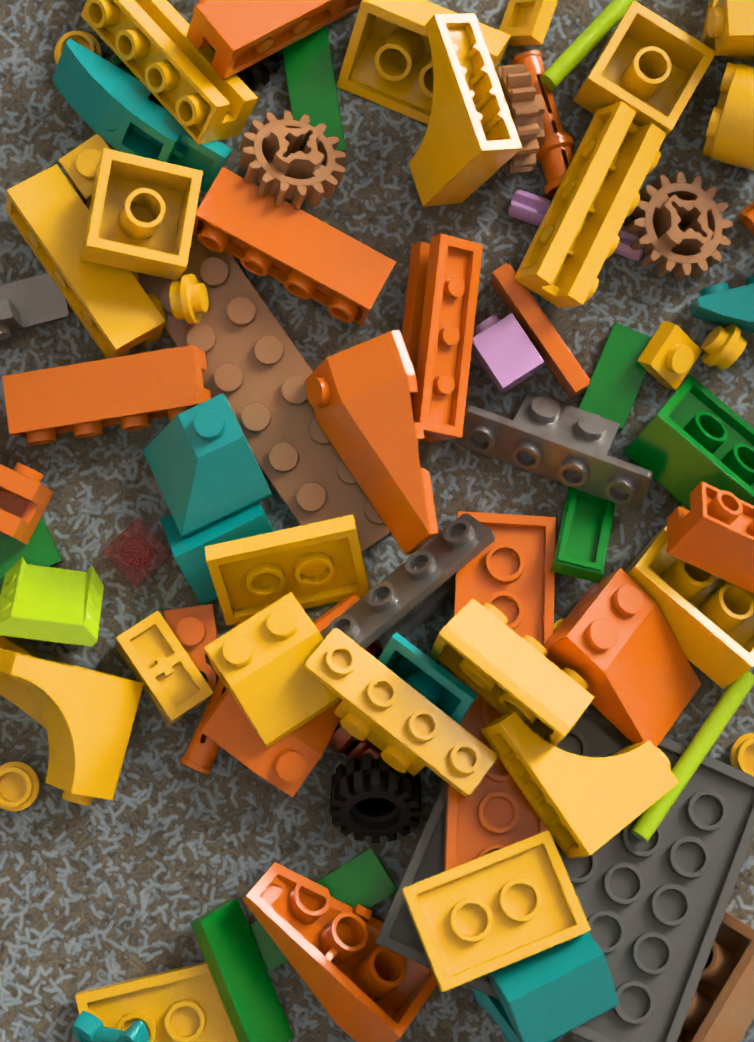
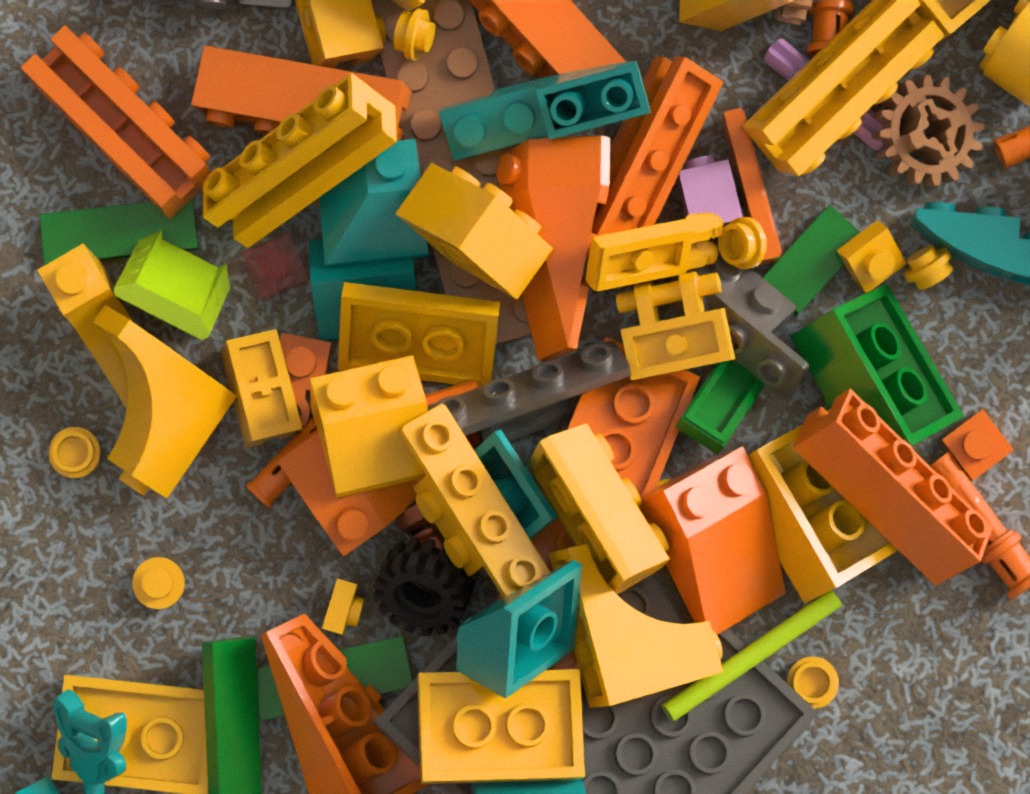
camera: 15 degrees right, 0 degrees up
(125, 448) = (300, 160): none -> yellow brick
(132, 878) = (158, 583): none -> yellow plate
(307, 455) = (475, 228): none -> yellow brick
(309, 842) = (344, 607): none -> yellow plate
(332, 323) = (545, 108): none -> teal slope
(475, 420) = (653, 251): none -> yellow hinge
(483, 817) = (521, 632): none -> teal slope
(526, 494) = (679, 342): none -> yellow plate
(553, 383) = (743, 243): none -> yellow plate

